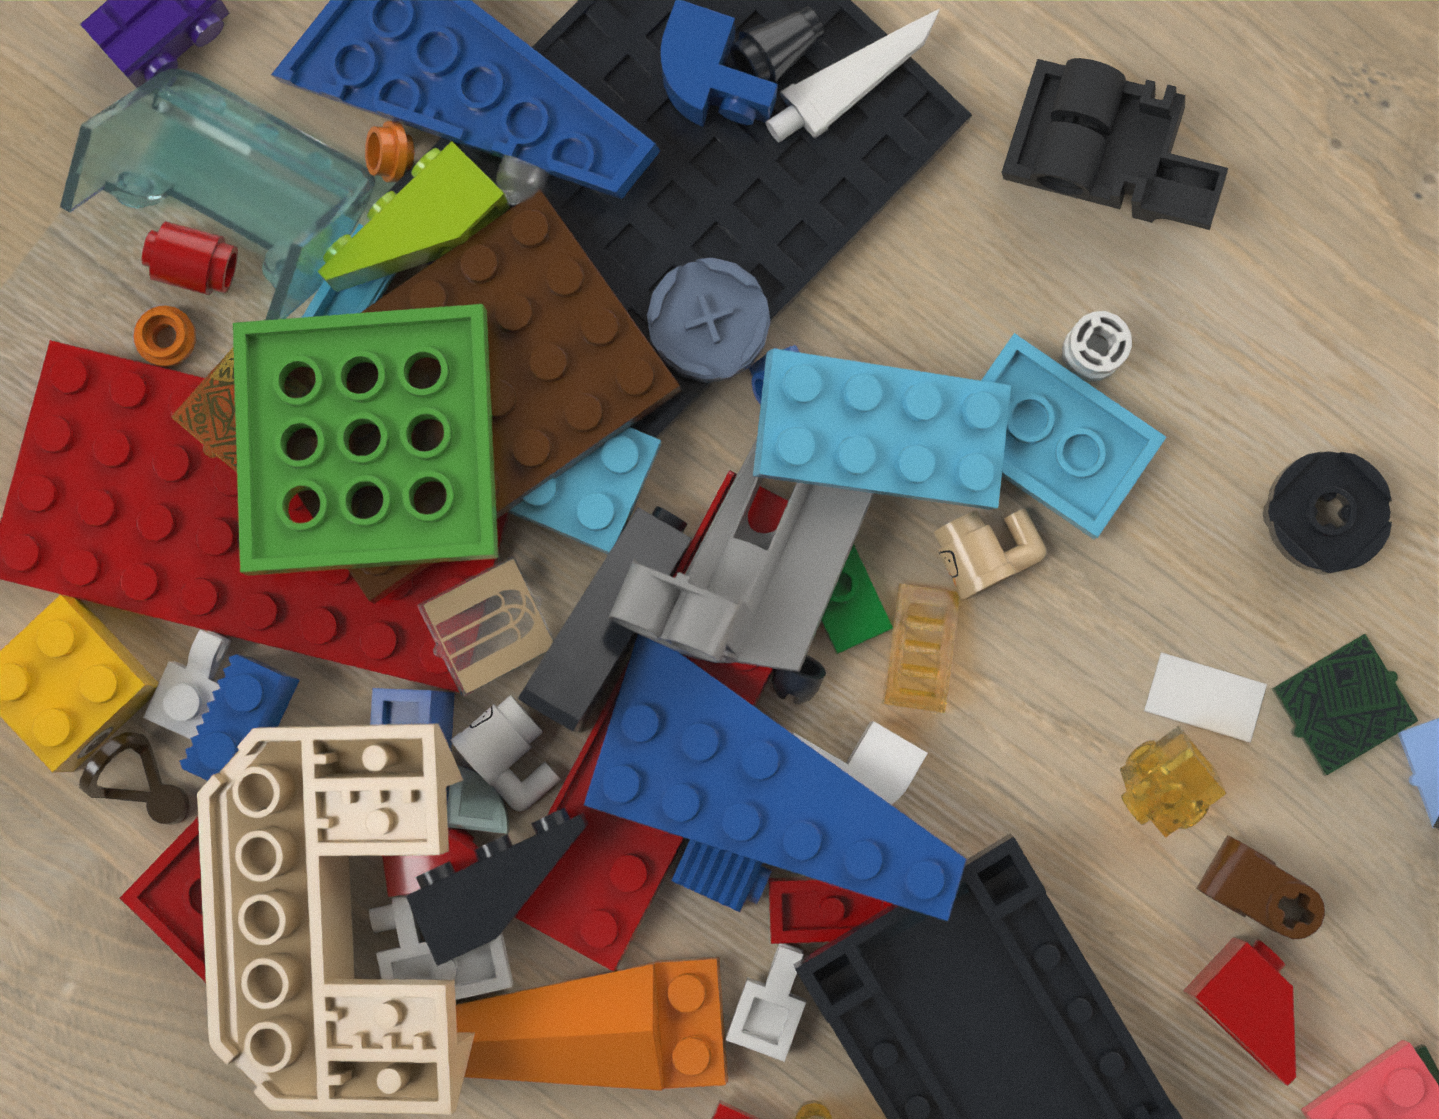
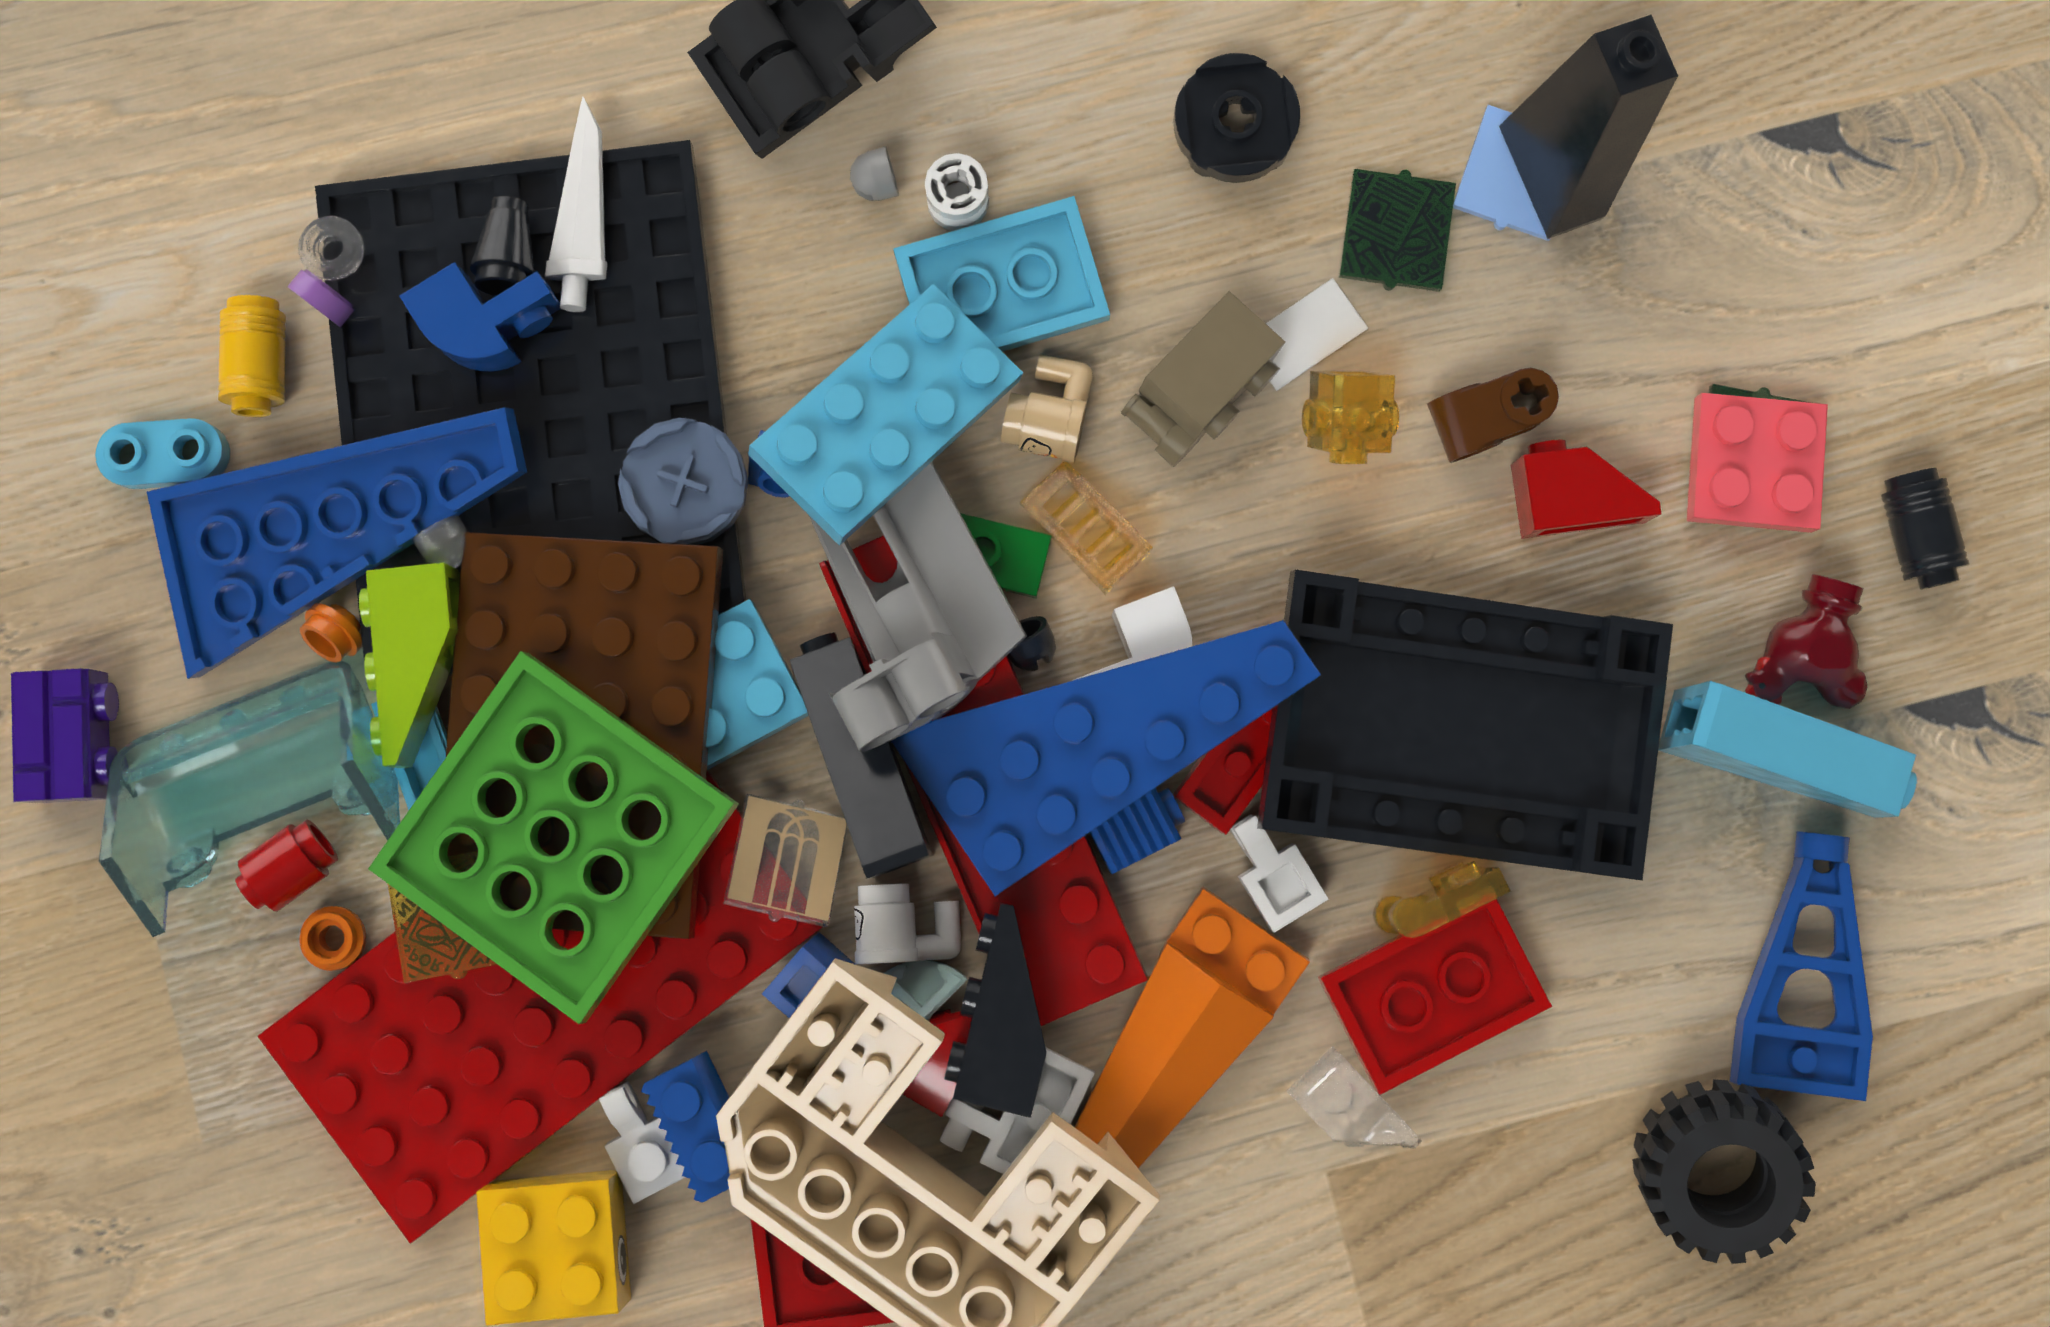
camera: 55 degrees left, 0 degrees up
(164, 803) = (717, 1242): dark brown piece -> none
(1058, 273) = (874, 176): none -> light grey hinge
(1107, 647) = (1203, 377): none -> dark tan hinge

